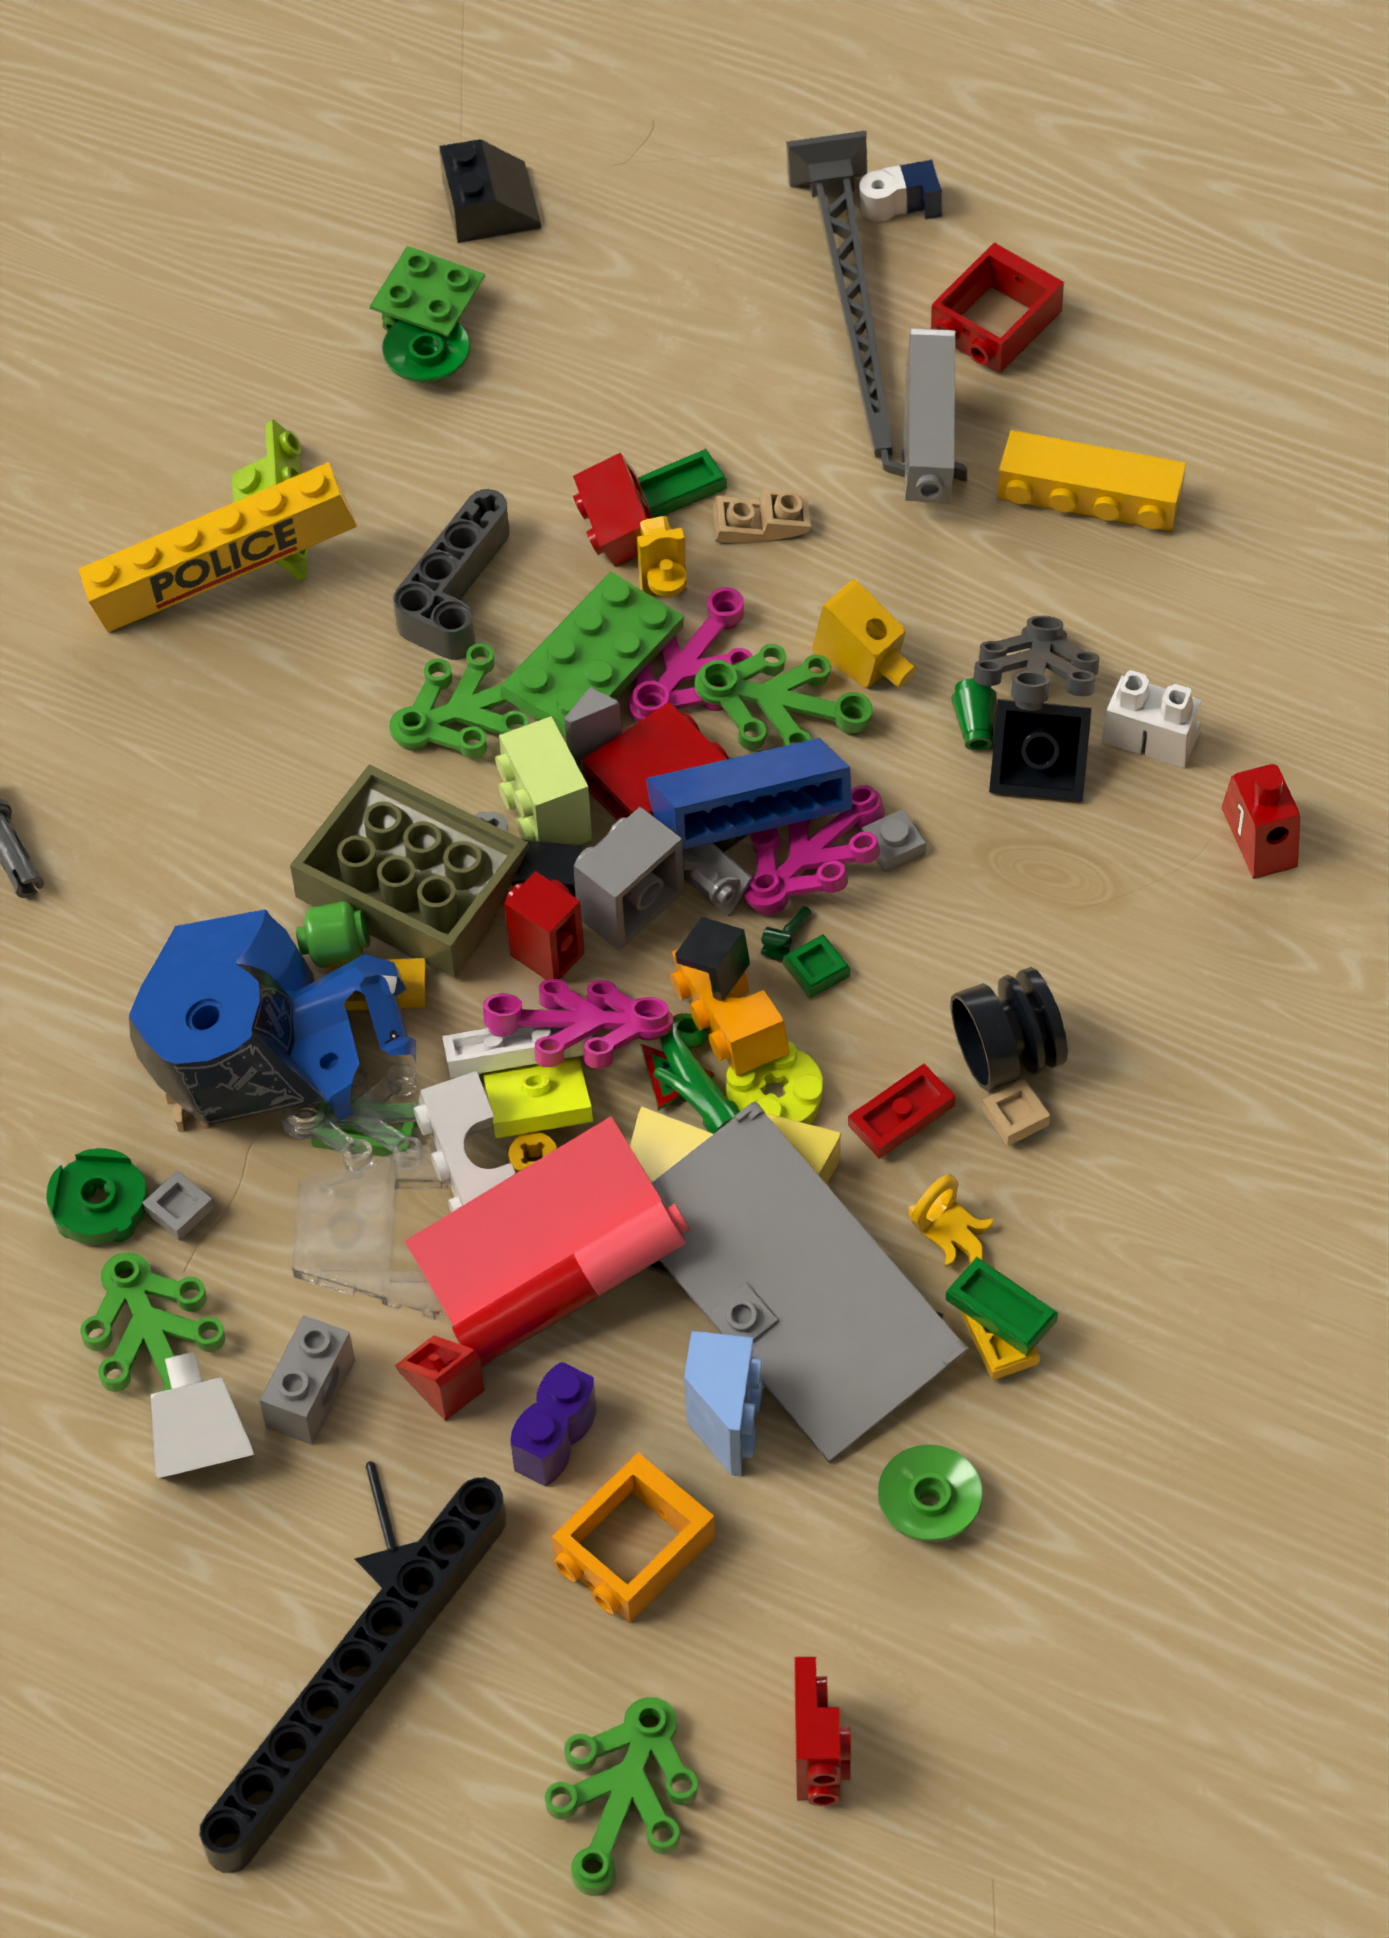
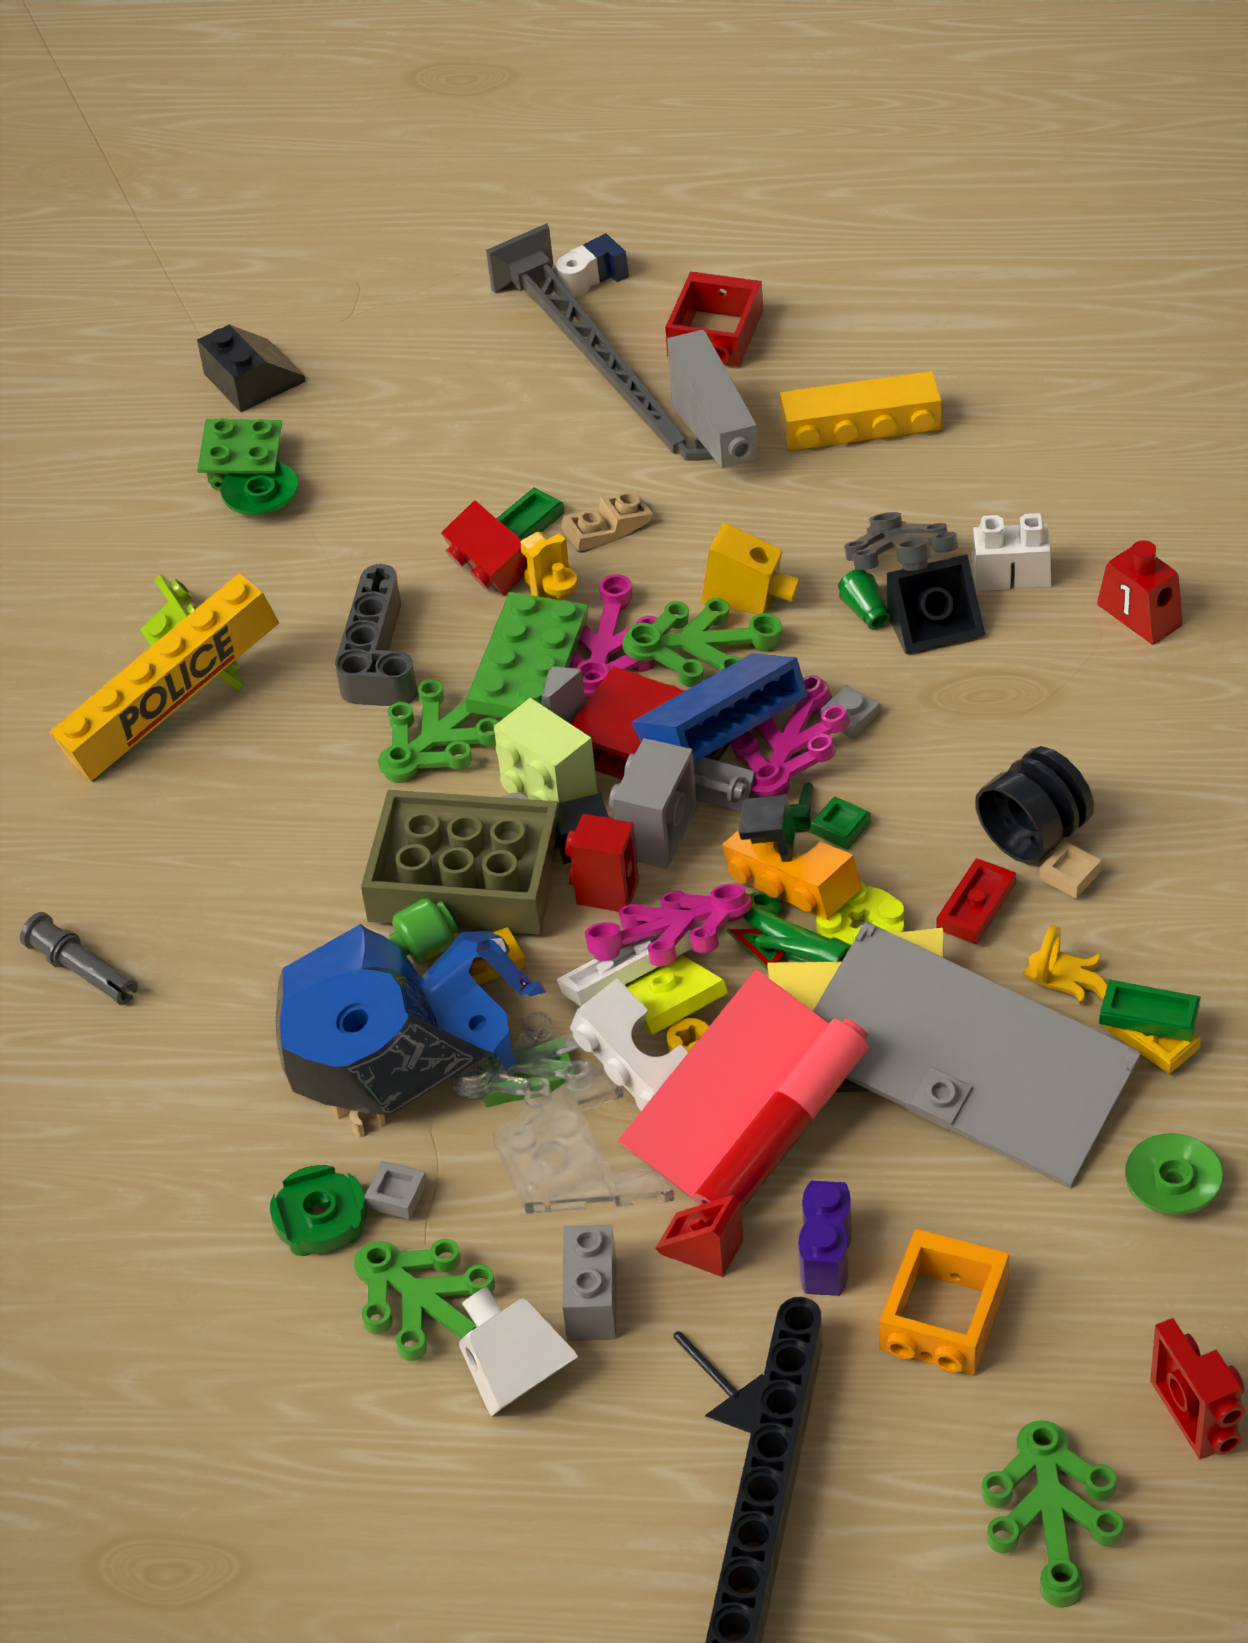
camera: 20 degrees left, 10 degrees down
(723, 1395) = (961, 1160): light blue slope -> none

